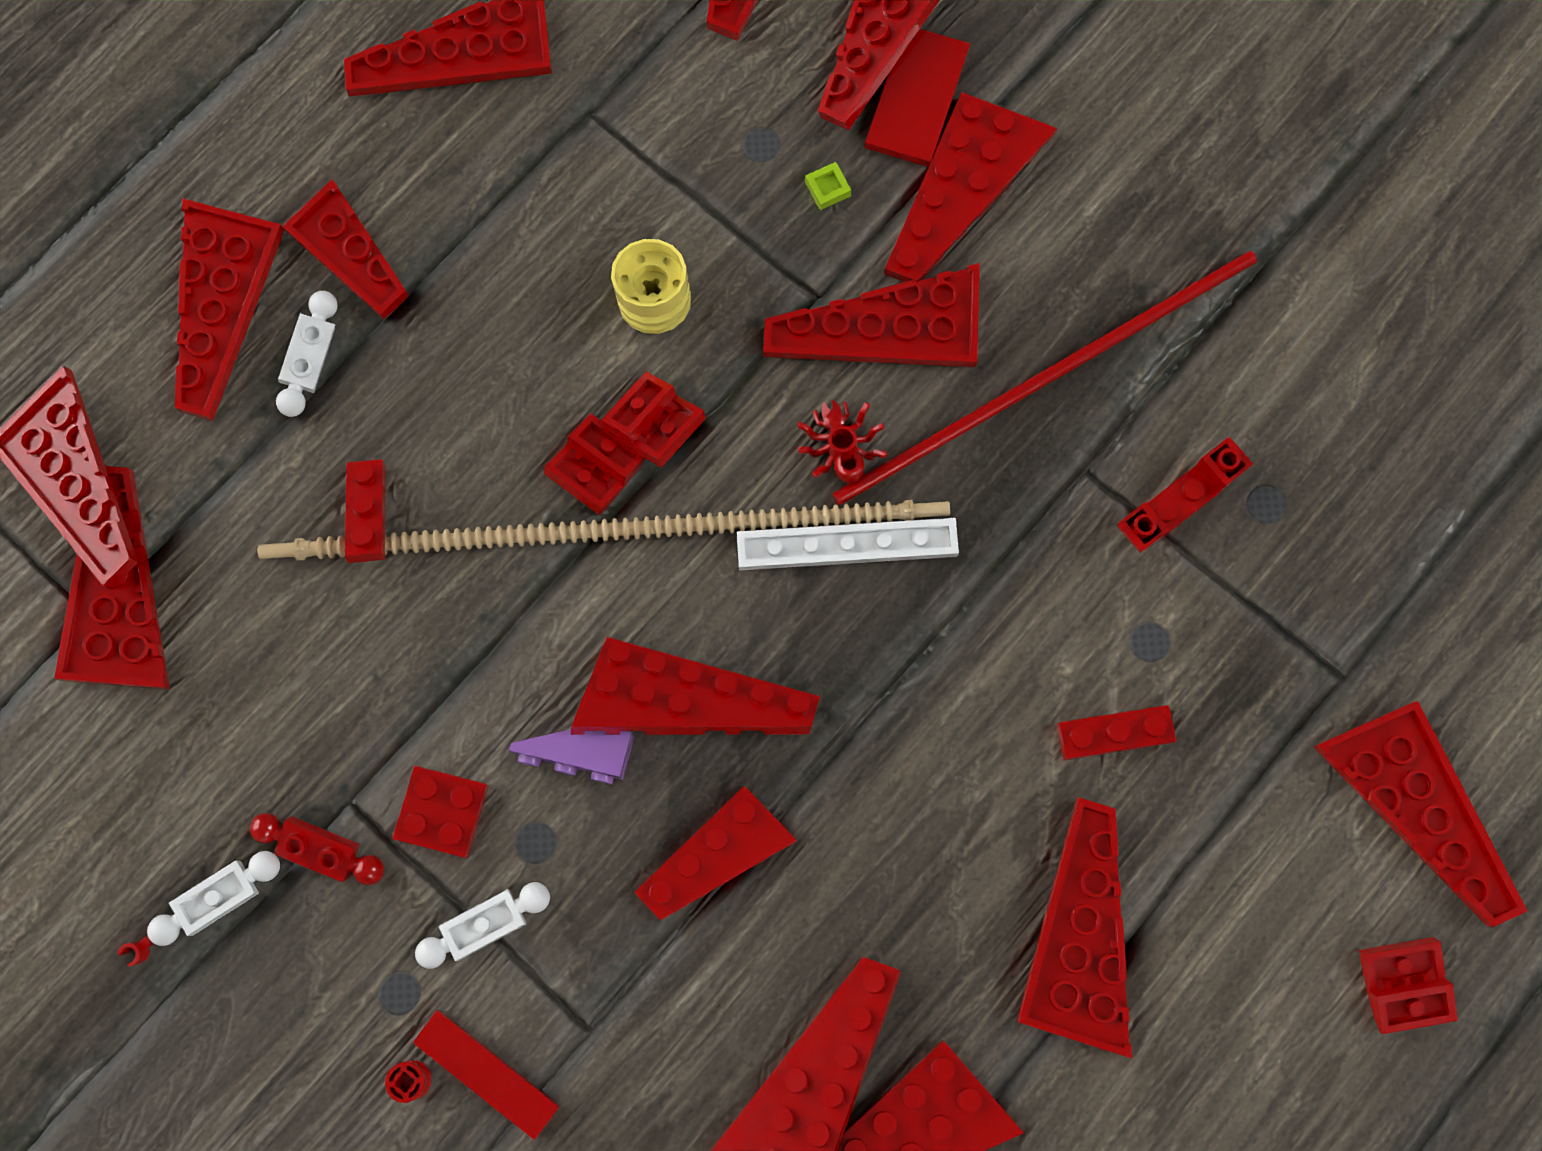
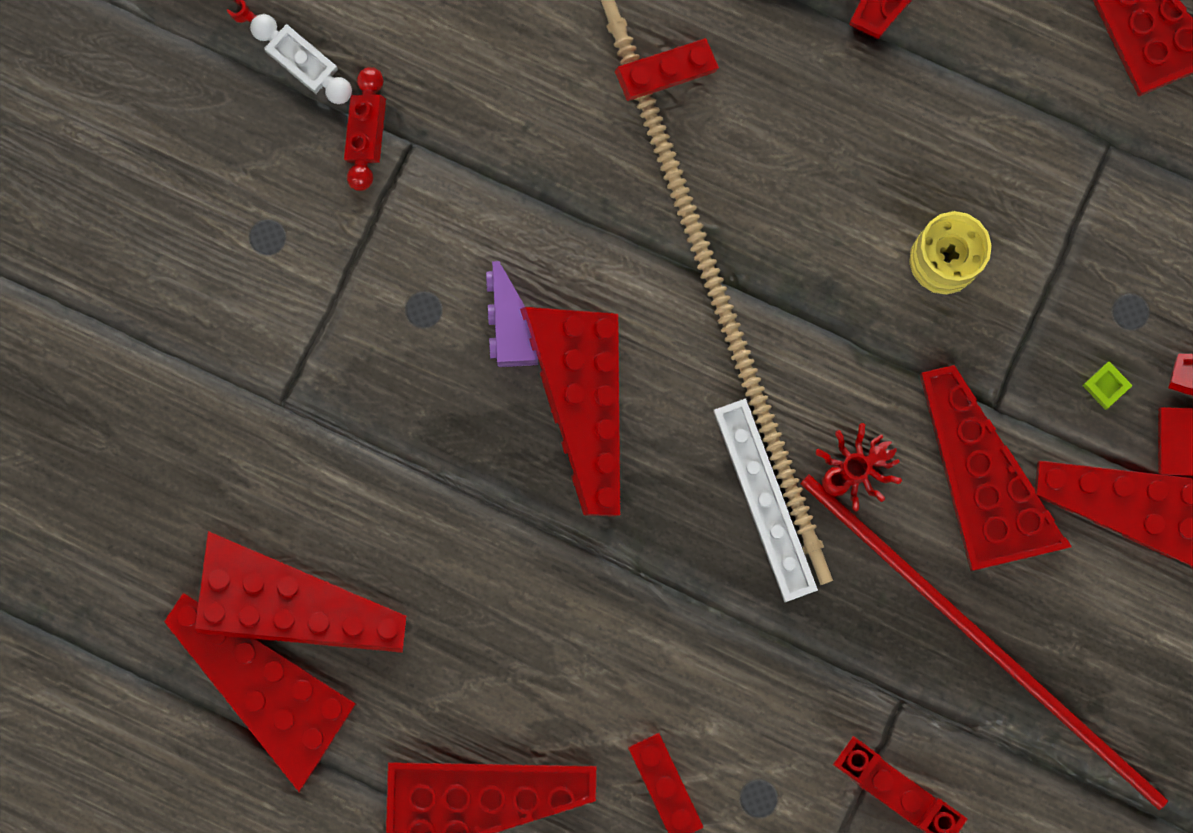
camera: 70 degrees right, 5 degrees up
(416, 1079) = (203, 273): red wheel -> none
(440, 811) = (426, 221): red plate -> none
(482, 925) = (341, 287): white plate -> none
(486, 1074) = (222, 329): red tile -> none
(594, 465) = (772, 255): red slope -> none
(653, 419) = (828, 293): red slope -> none
(723, 848) = (463, 469): red wing -> none

